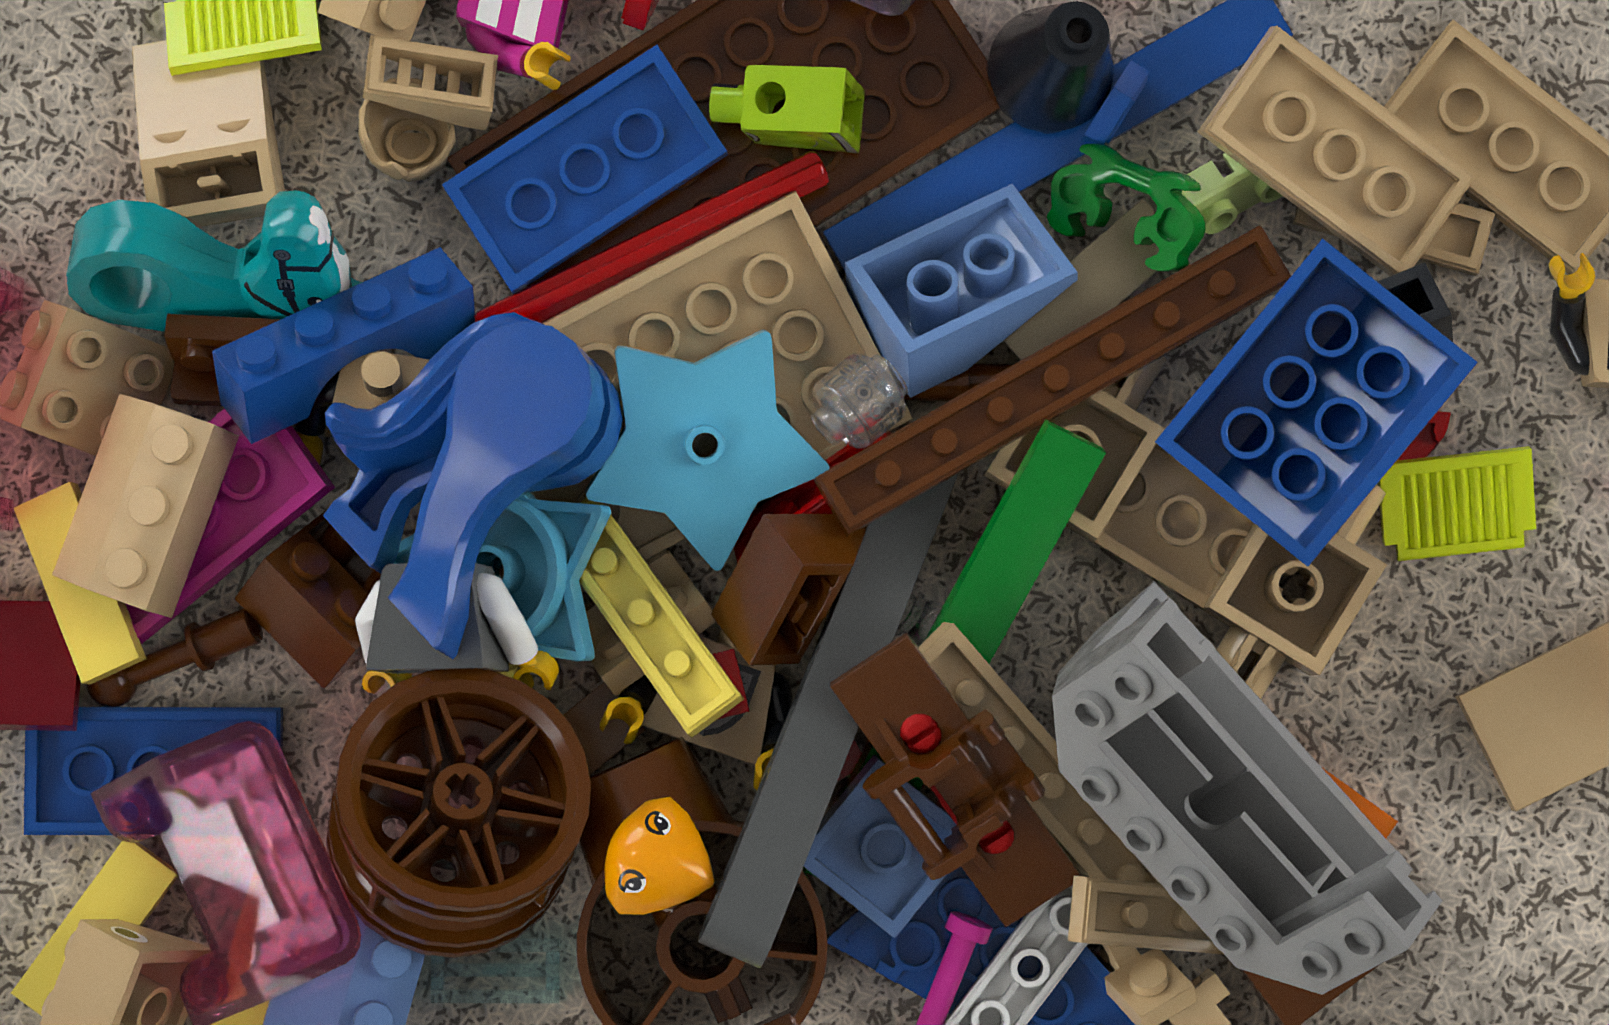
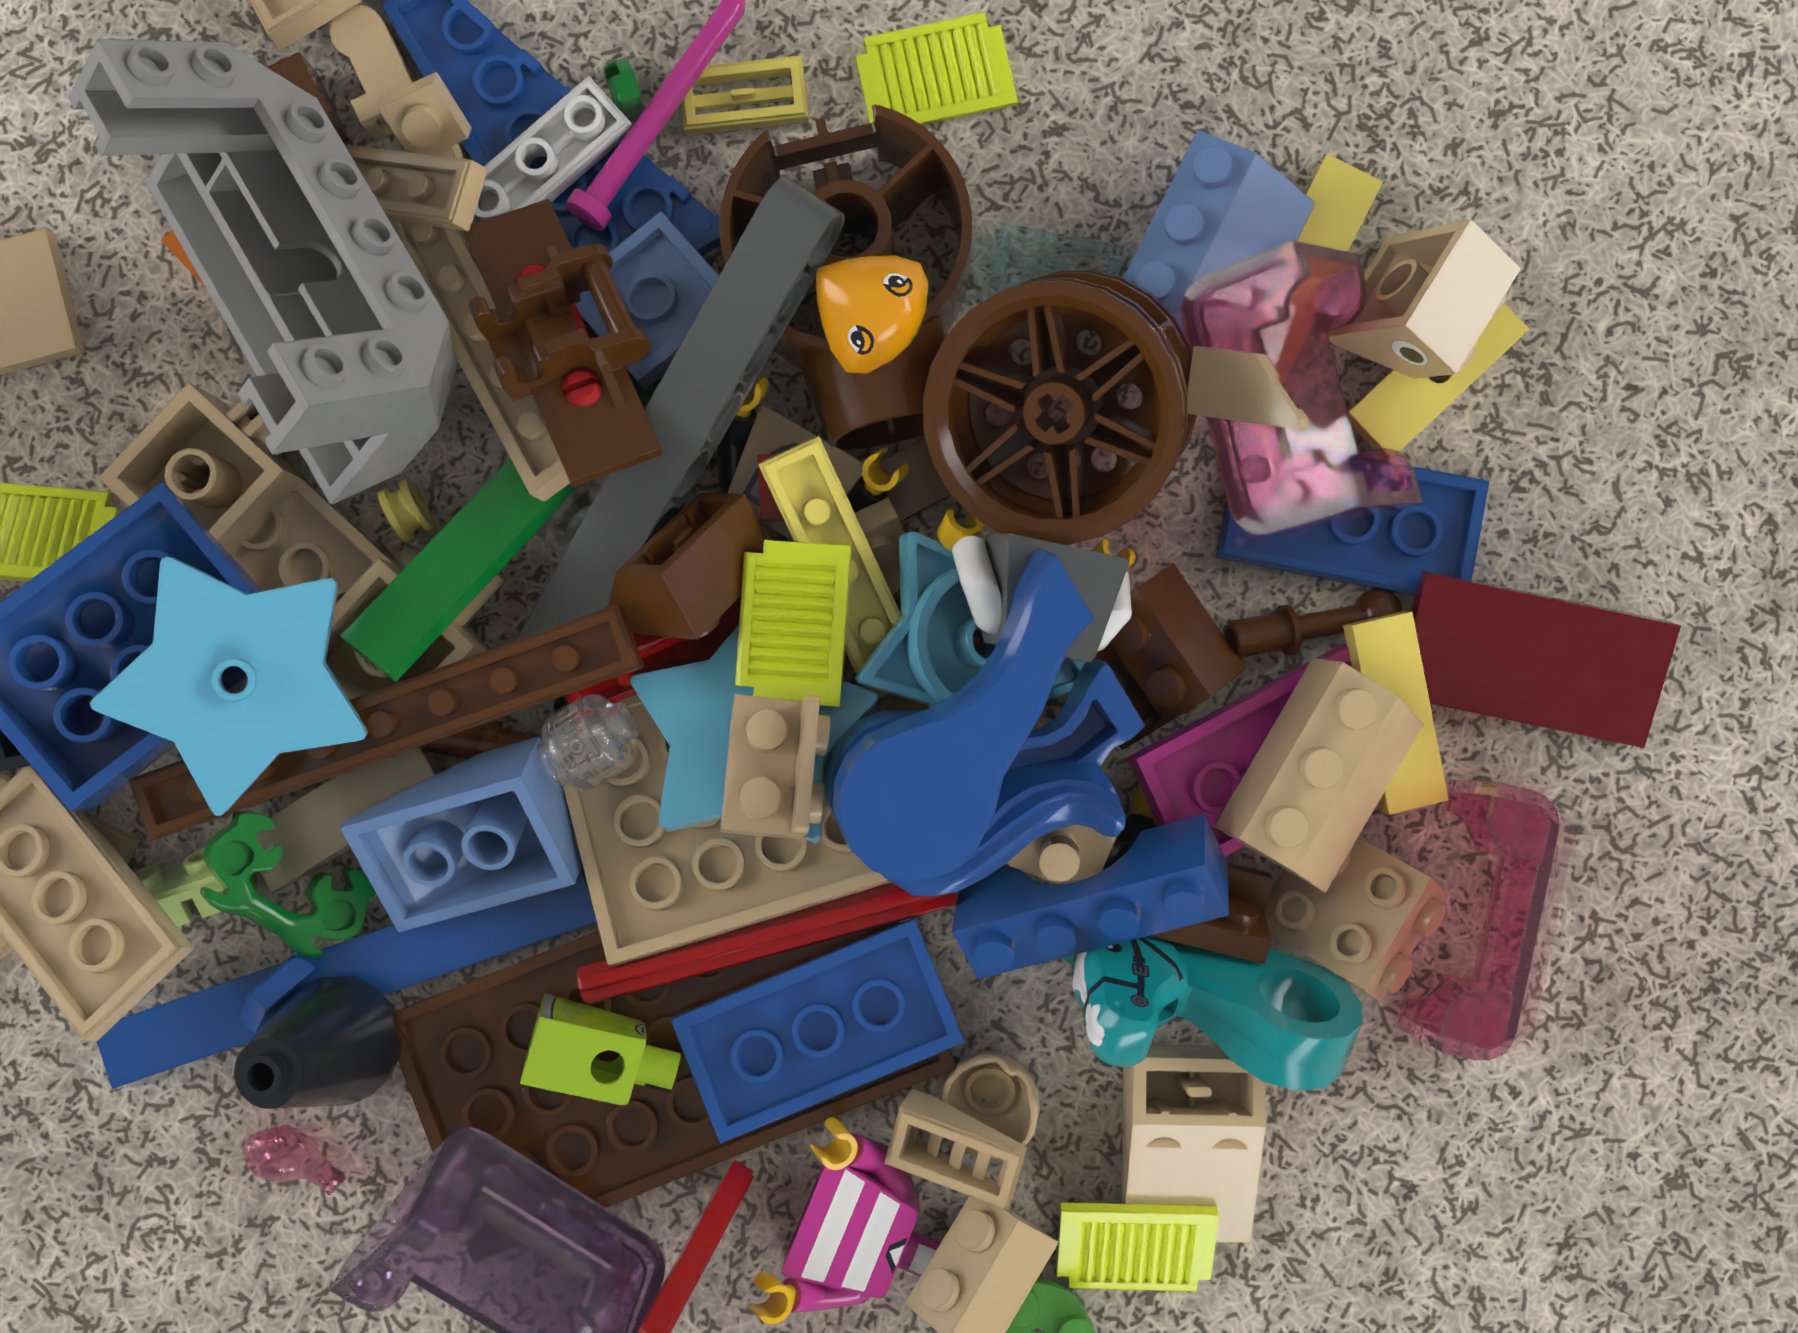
camera: 170 degrees left, 0 degrees up
(289, 855) = (1240, 389): none -> tan tile
(668, 408) = (772, 767): none -> tan bracket
(678, 551) = (794, 621): none -> neon yellow window
(1093, 596) = (406, 510): none -> light yellow bush
(1227, 423) = (180, 691): none -> medium azure plate

